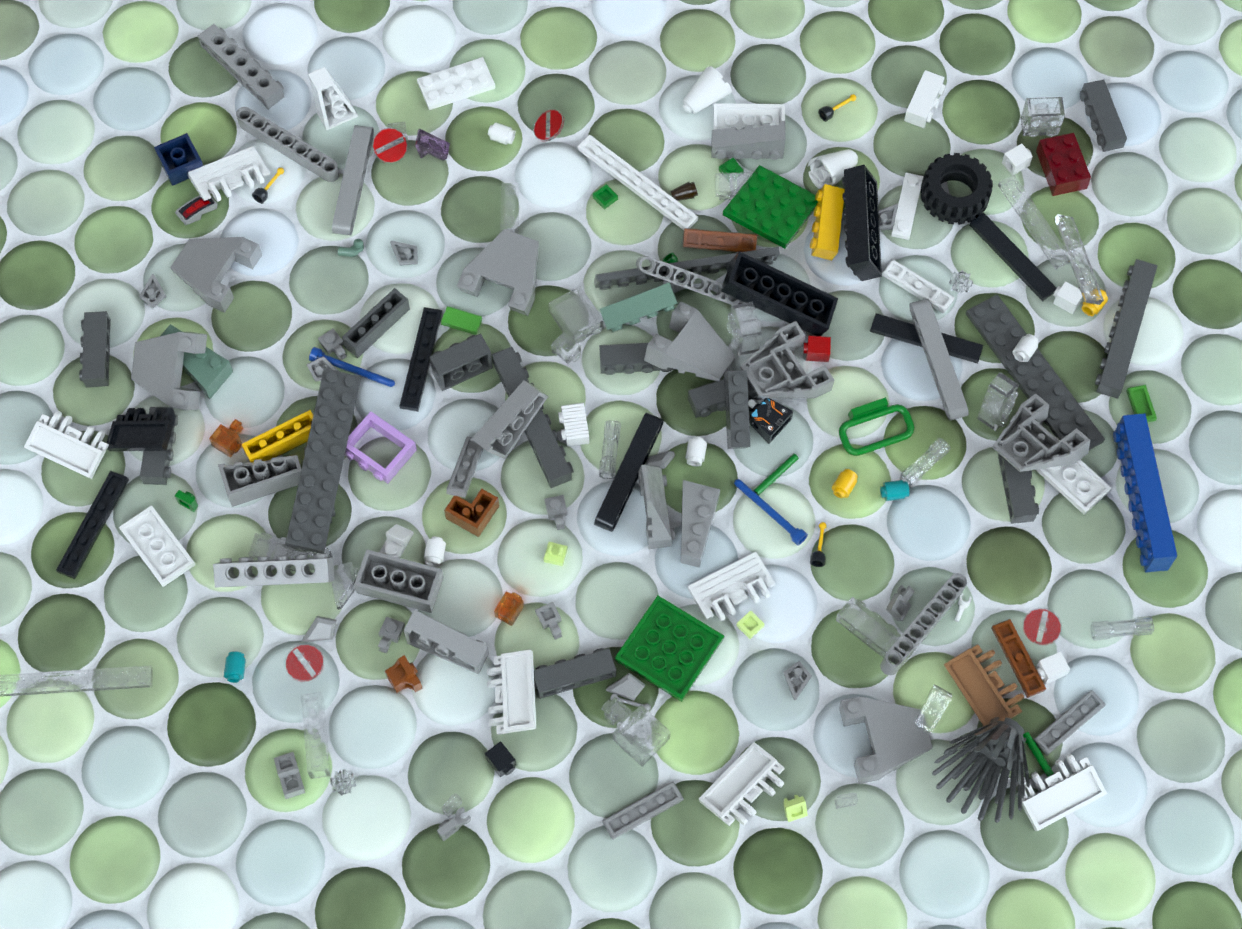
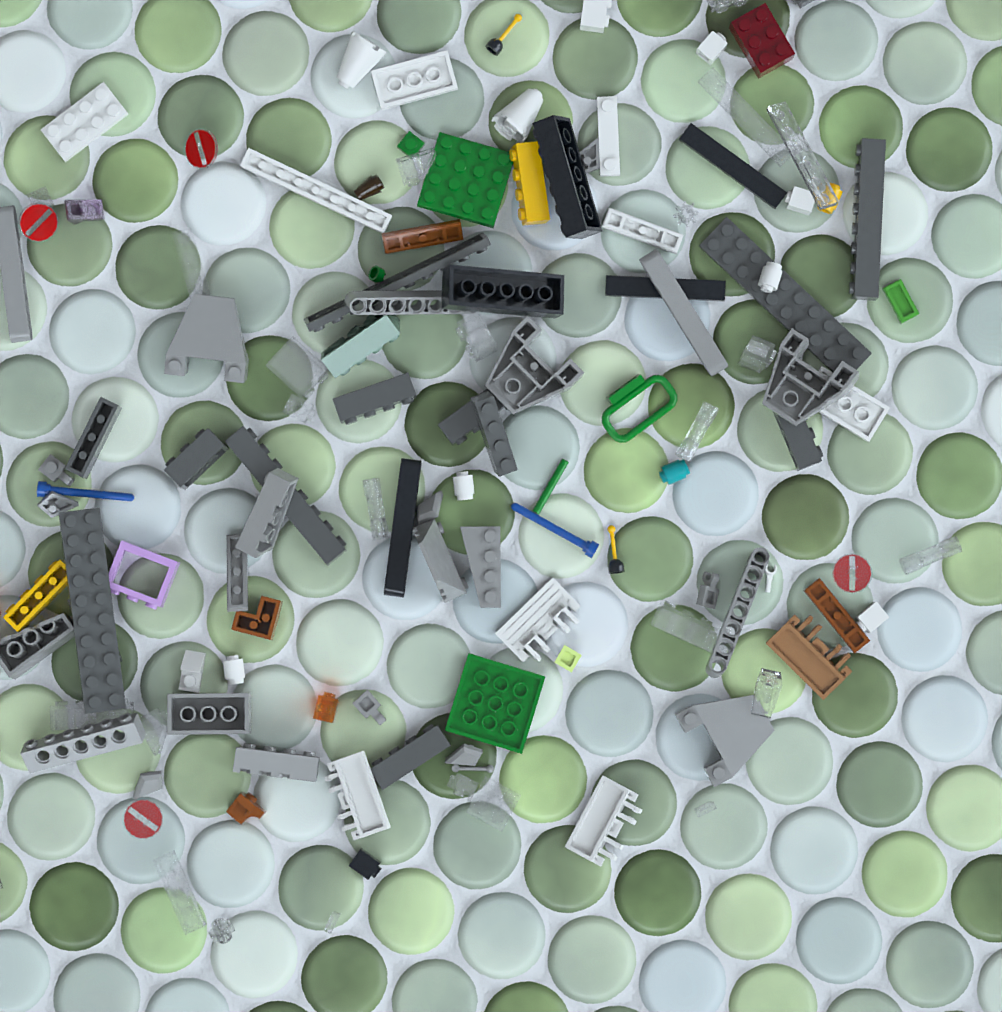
camera: 15 degrees left, 20 degrees up
(234, 667) = (77, 846): teal brick -> none
(289, 775) = (167, 936): light grey slope -> none
(355, 249) = (40, 357): sand green arm -> none
(390, 631) = (217, 763): light grey plate -> none
(405, 253) = (96, 344): light grey piece -> none
(420, 359) = (152, 461): black tile -> none
(448, 827) = (336, 944): light grey plate -> none
(461, 320) = (180, 405): bright green tile -> none
(501, 133) = (153, 173): white brick -> none
(555, 553) = (354, 635): yellowish green tile -> none
(556, 509) = (341, 587): light grey plate -> none
(575, 424) = (332, 491): white brick -> none
(605, 196) = (286, 217): green plate -> none
(642, 810) = (514, 872): light grey tile -> none
(694, 349) = (435, 377): light grey wedge -> none
(749, 142) = (421, 110): light grey wedge -> none
(769, 418) = (526, 428): black torso -> none
(795, 808) = (659, 830): yellowish green tile -> none
(797, 679) = (627, 698): light grey piece -> none
(817, 348) = (556, 334): red brick -> none
(844, 483) = (622, 479): yellow brick -> none
(961, 169) = (656, 79): black tyre -> none
(1000, 748) = (839, 720): dark grey plant -> none
(1038, 755) = (880, 712): green bar -> none
(1064, 792) = (908, 743): white hinge -> none
(1069, 722) = (899, 666): light grey tile -> none
(1145, 493) = (923, 405): blue brick -> none

